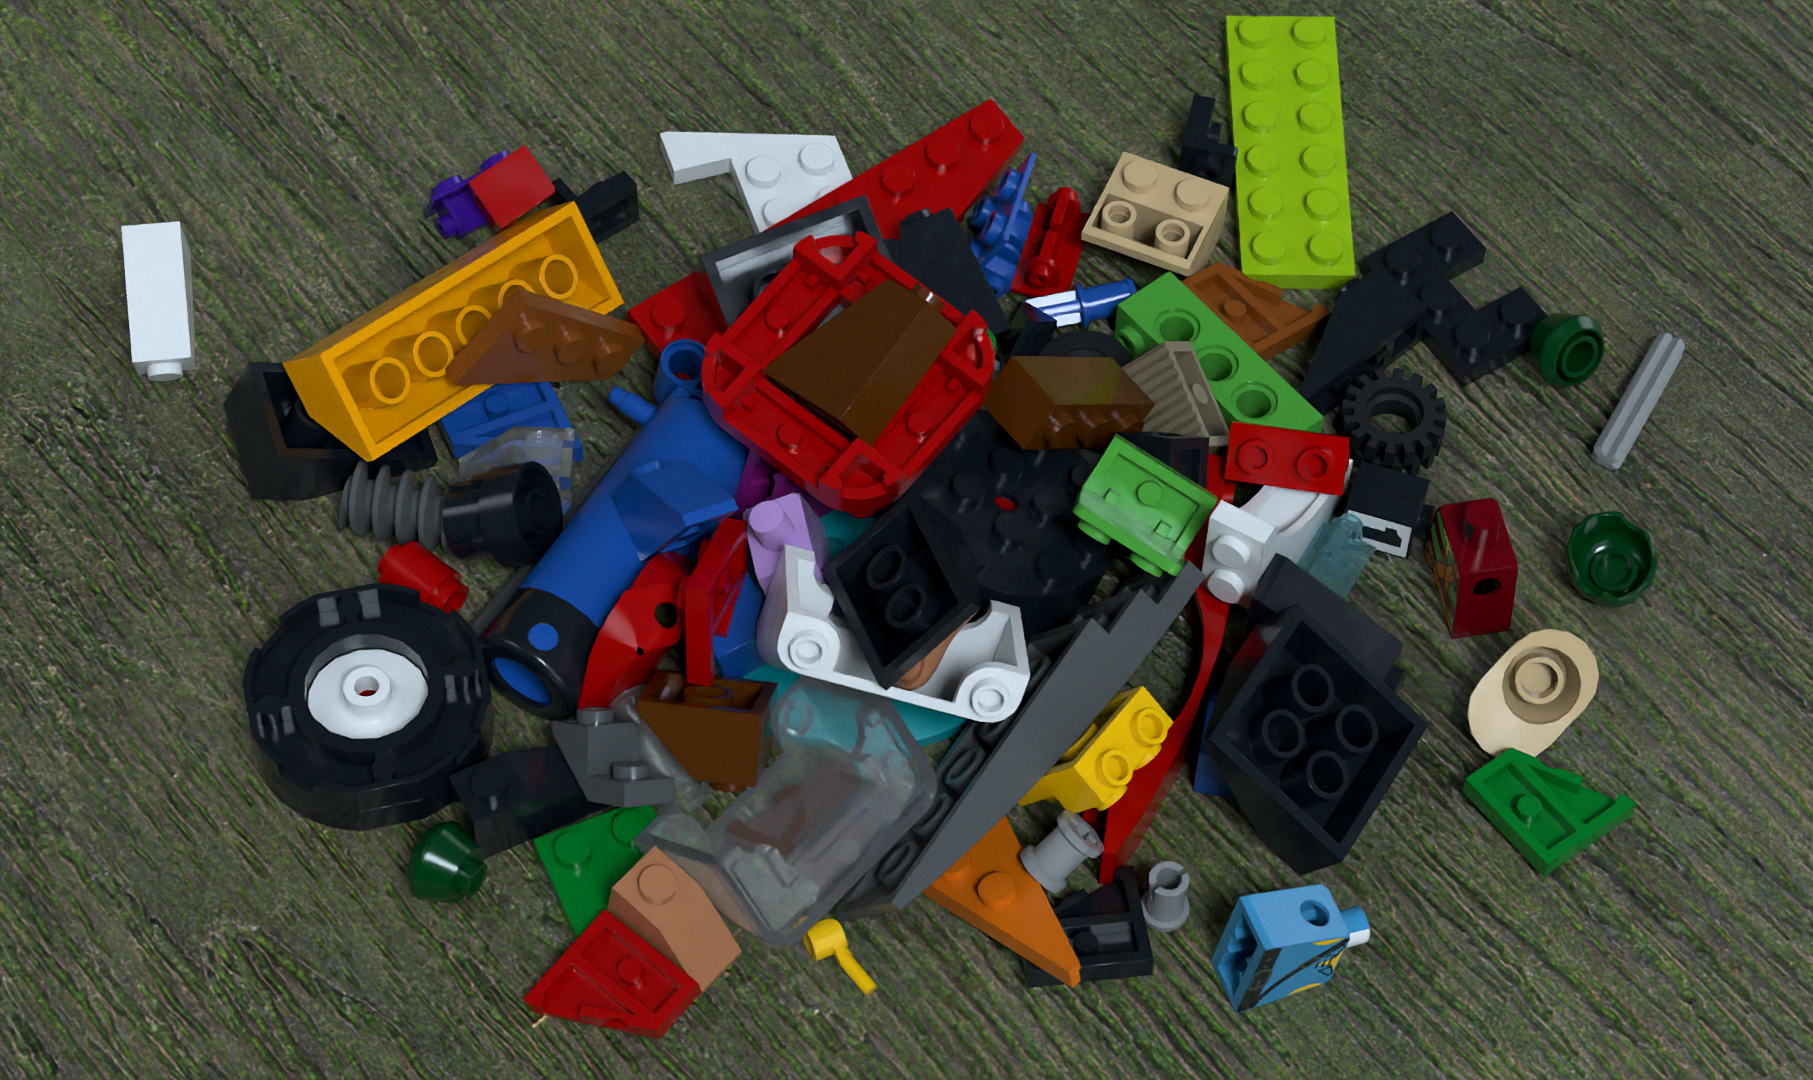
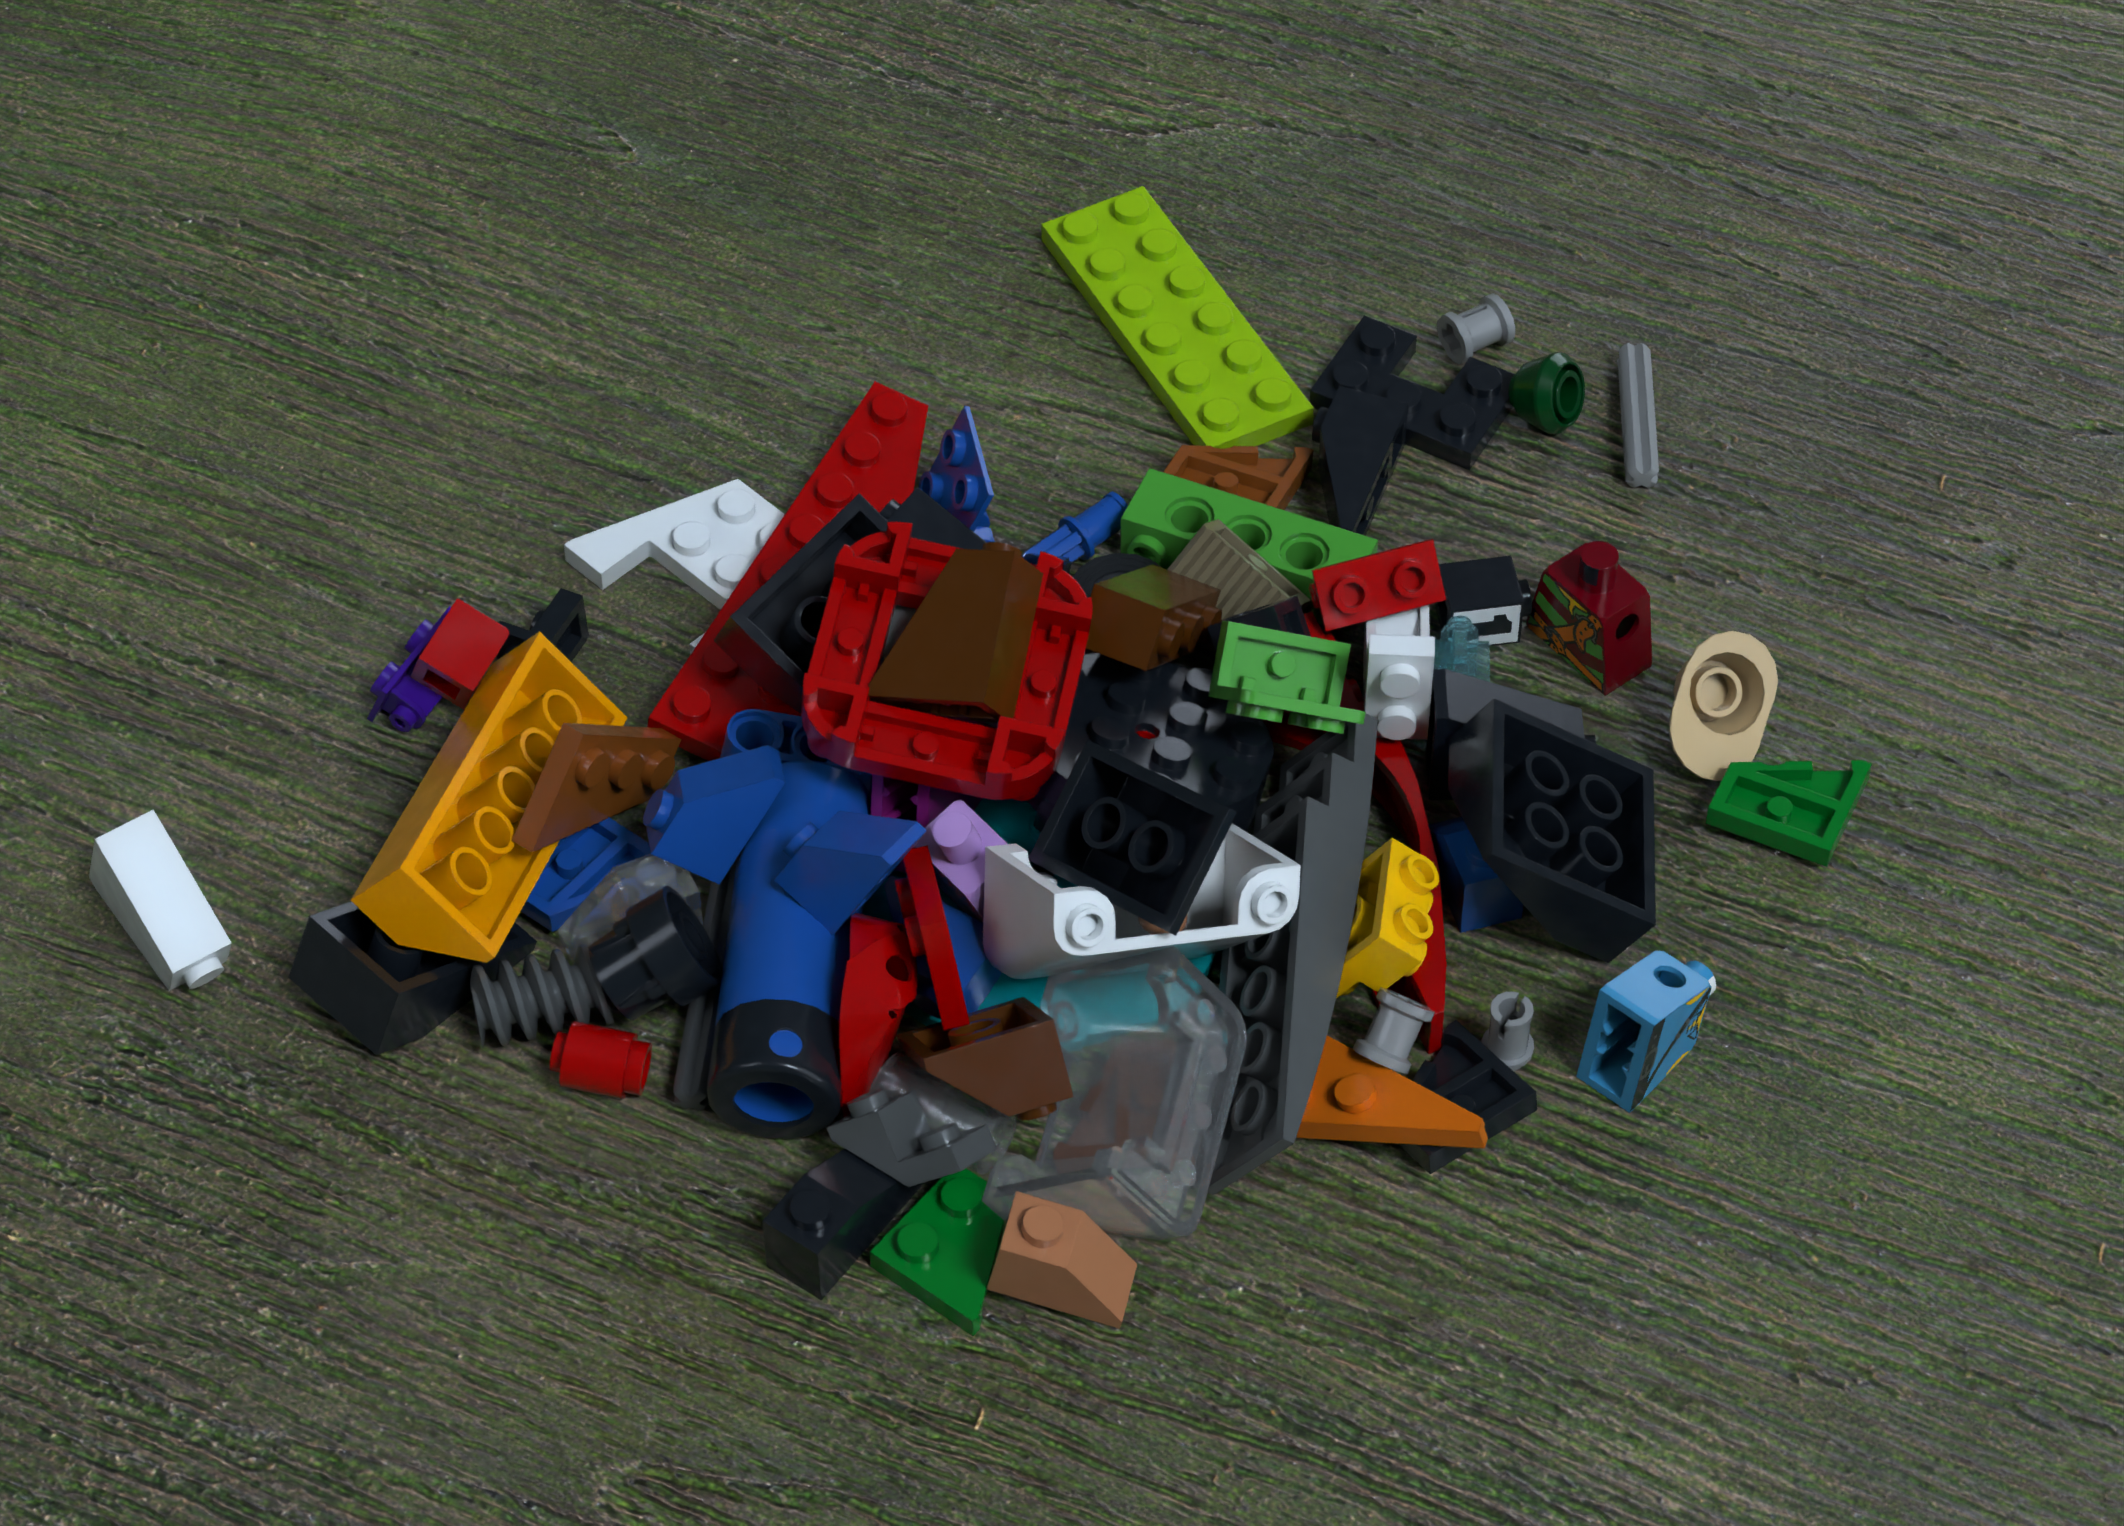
camera: 25 degrees left, 5 degrees down
(368, 706) = (631, 1197): black piece -> none
(446, 865) = (803, 1312): dark green cone -> none
(609, 414) = (713, 810): none -> blue slope
(614, 983) = (1037, 1347): red wing -> none
(829, 939) = (1221, 1215): yellow hand -> none
(1052, 246) = (1019, 505): red hinge -> none
(1158, 215) = (1102, 421): tan slope -> none
(1201, 149) = (1099, 356): black bracket -> none
(1399, 398) = (1439, 500): black tyre -> none
(1541, 263) = (1476, 328): none -> light grey bush
(1610, 559) = (1711, 561): dark green hair -> none

